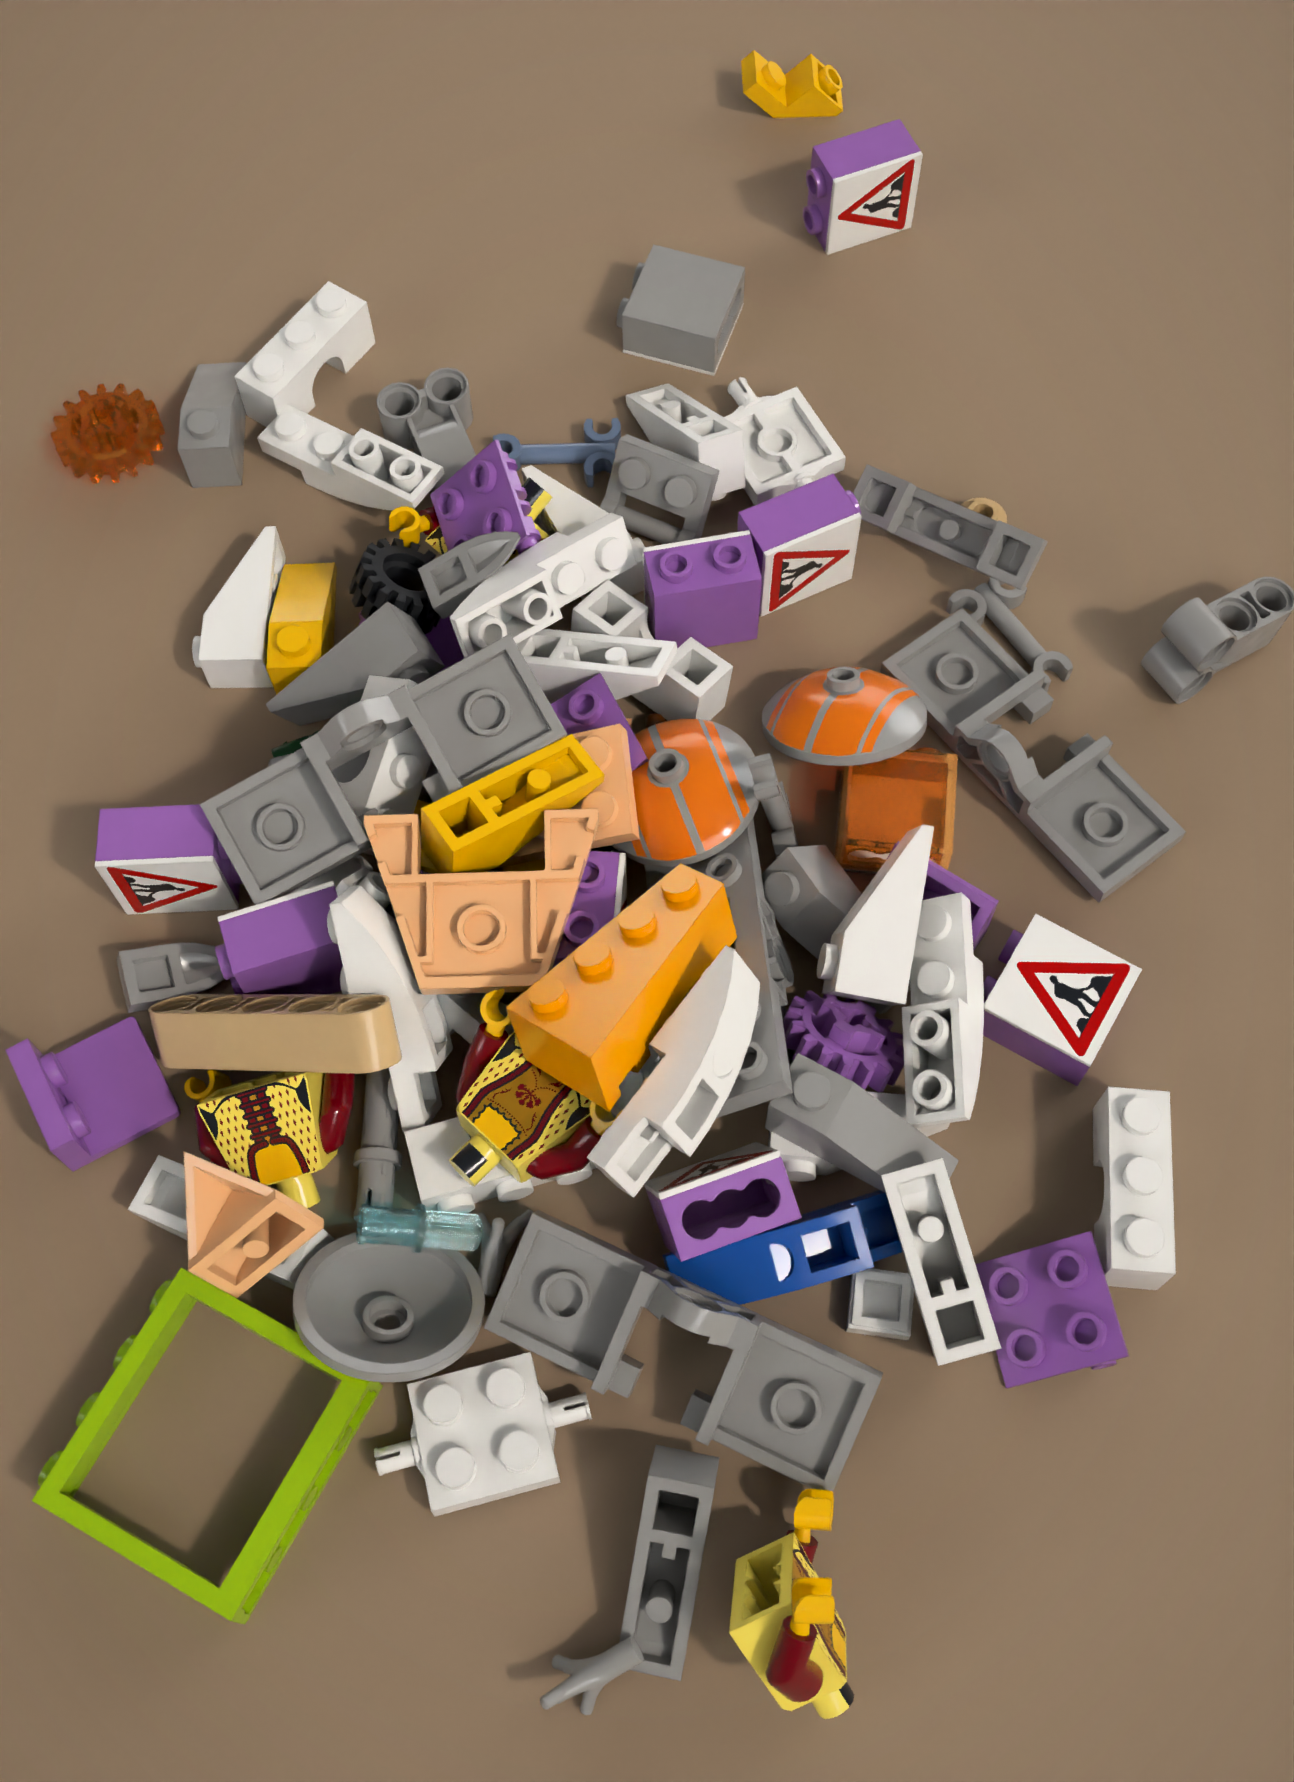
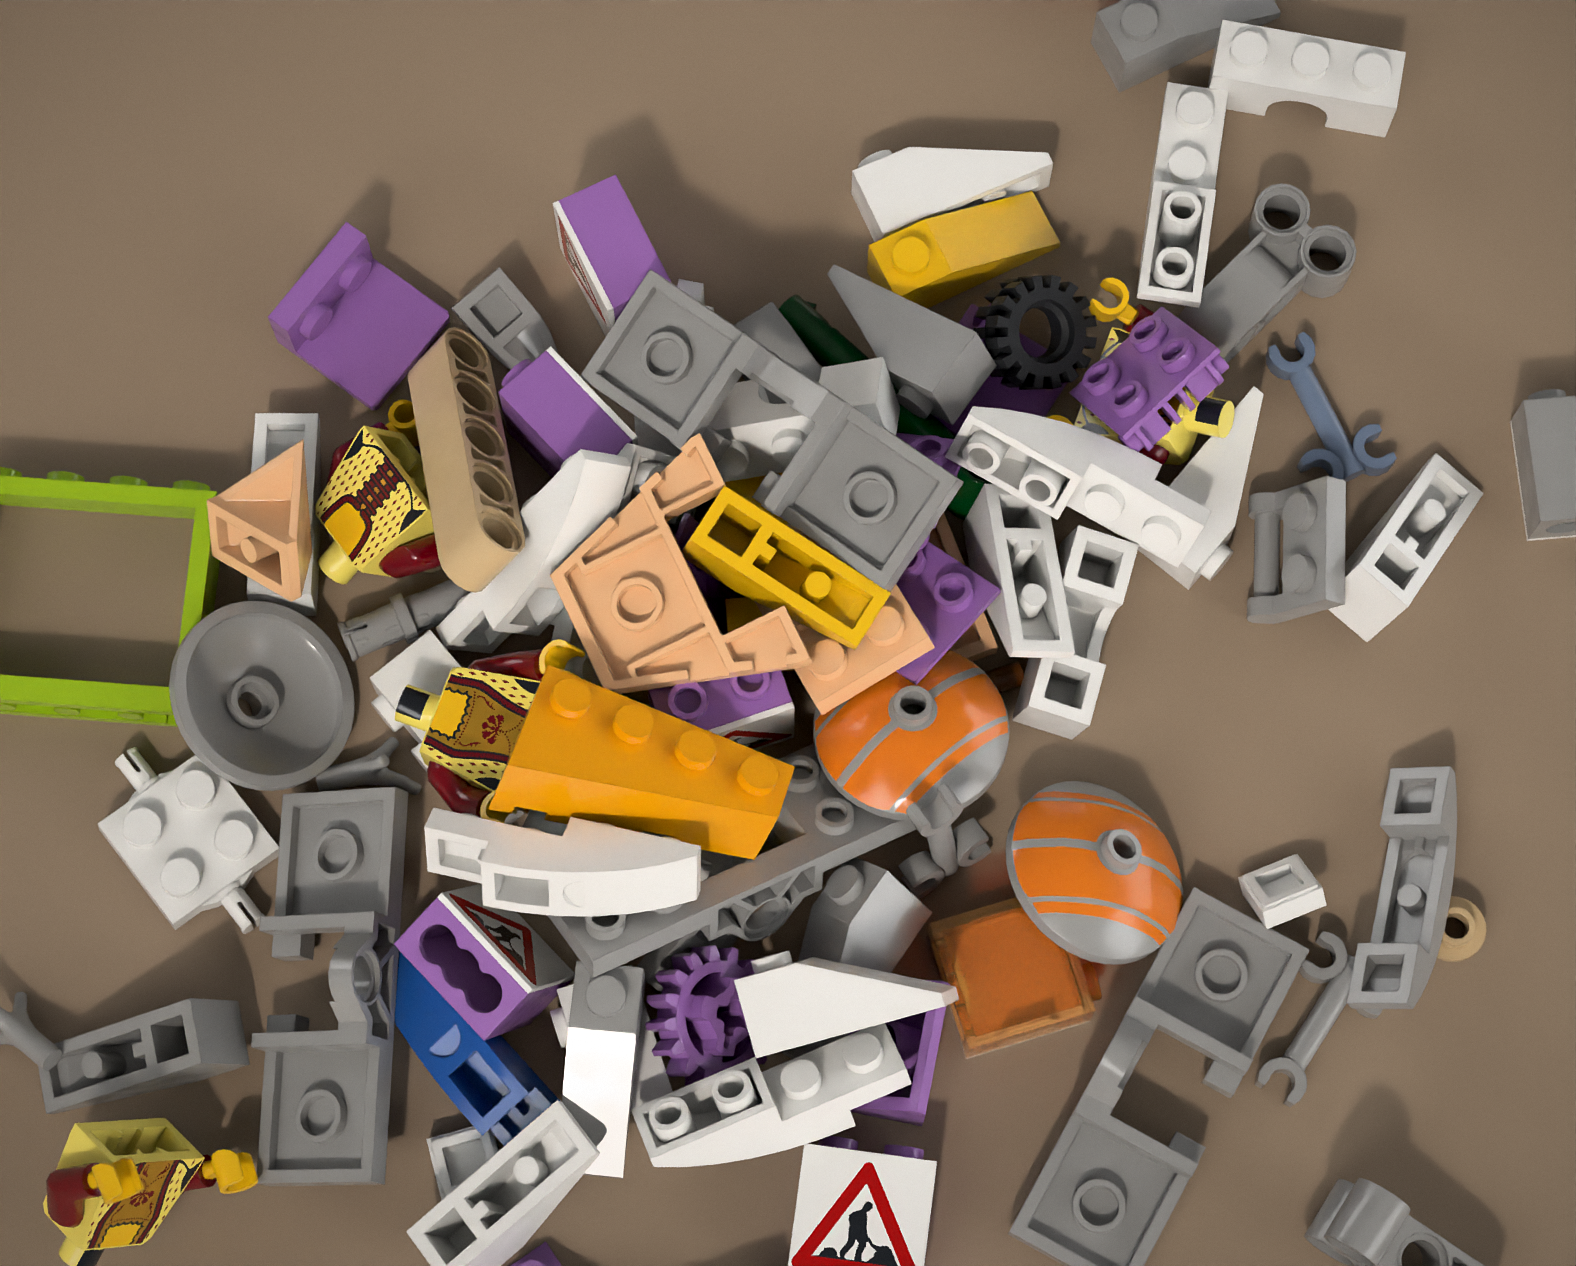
camera: 65 degrees right, 10 degrees up
(418, 1228) = (347, 689): clear light blue axle -> none
(462, 569) = (1061, 390): light grey plate -> none
(703, 590) = (1178, 652): medium lavender piece -> none
(782, 442) = (1445, 655): white plate -> none
(803, 541) = (1295, 732): piece -> none
(908, 610) = (1282, 891): none -> white tile

